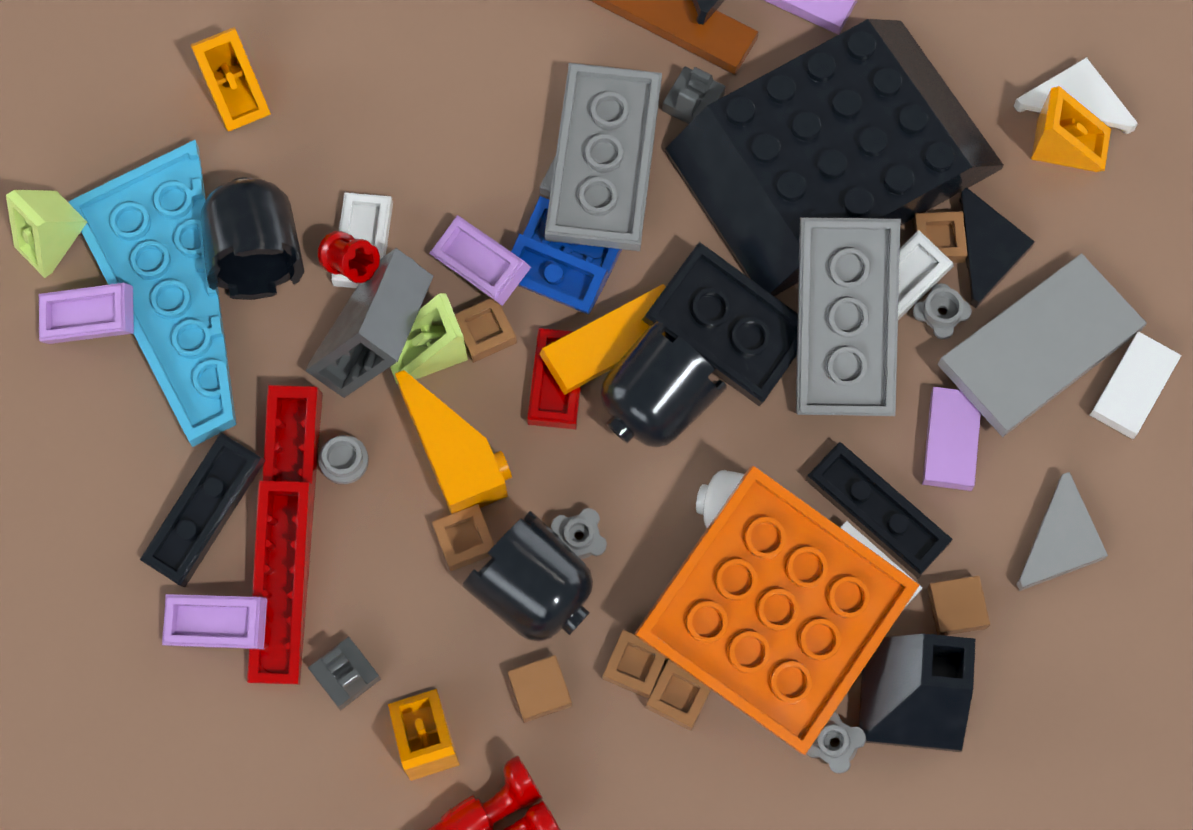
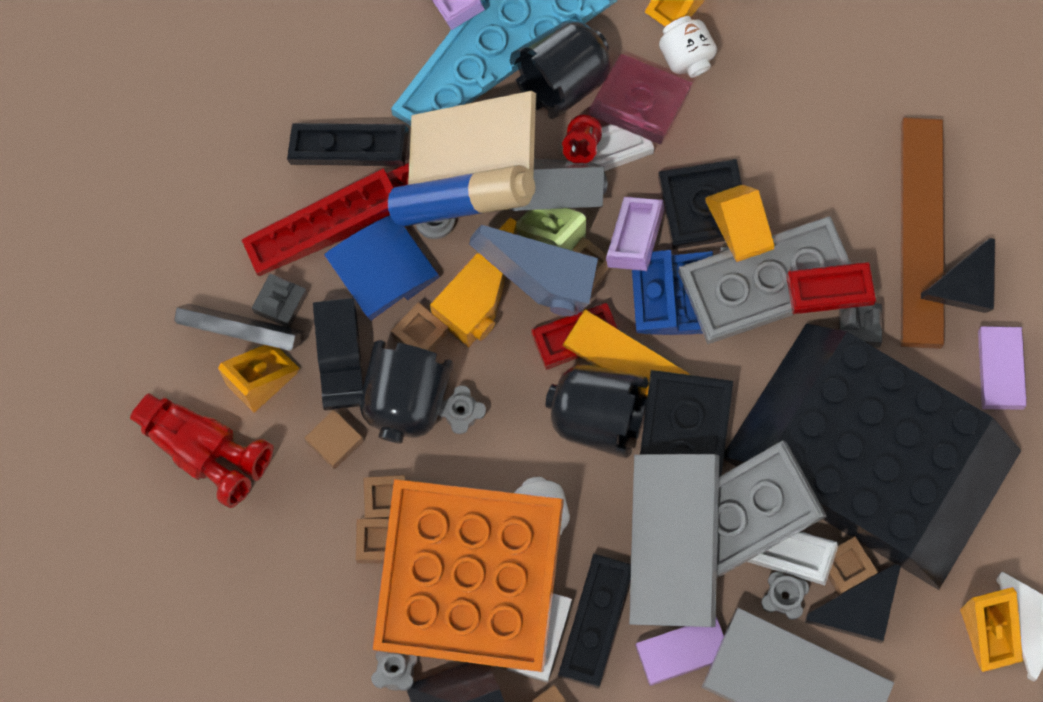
camera: 65 degrees right, 0 degrees up
(214, 621) = (271, 194): lavender tile -> none
(299, 105) = (688, 46): none -> white head
(314, 379) = (468, 161): none -> tan door
(330, 181) = (640, 99): none -> clear pink tile
(355, 730) = (238, 326): none -> tile
(367, 541) = (381, 266): none -> blue slope
(446, 634) = (338, 353): none -> black piece
(476, 370) = (543, 271): none -> sand blue slope
(480, 179) = (685, 204): none -> black tile
(528, 145) = (742, 221): none -> light orange slope
(650, 99) = (830, 288): none -> red tile
(840, 383) = (674, 540): none -> light grey tile

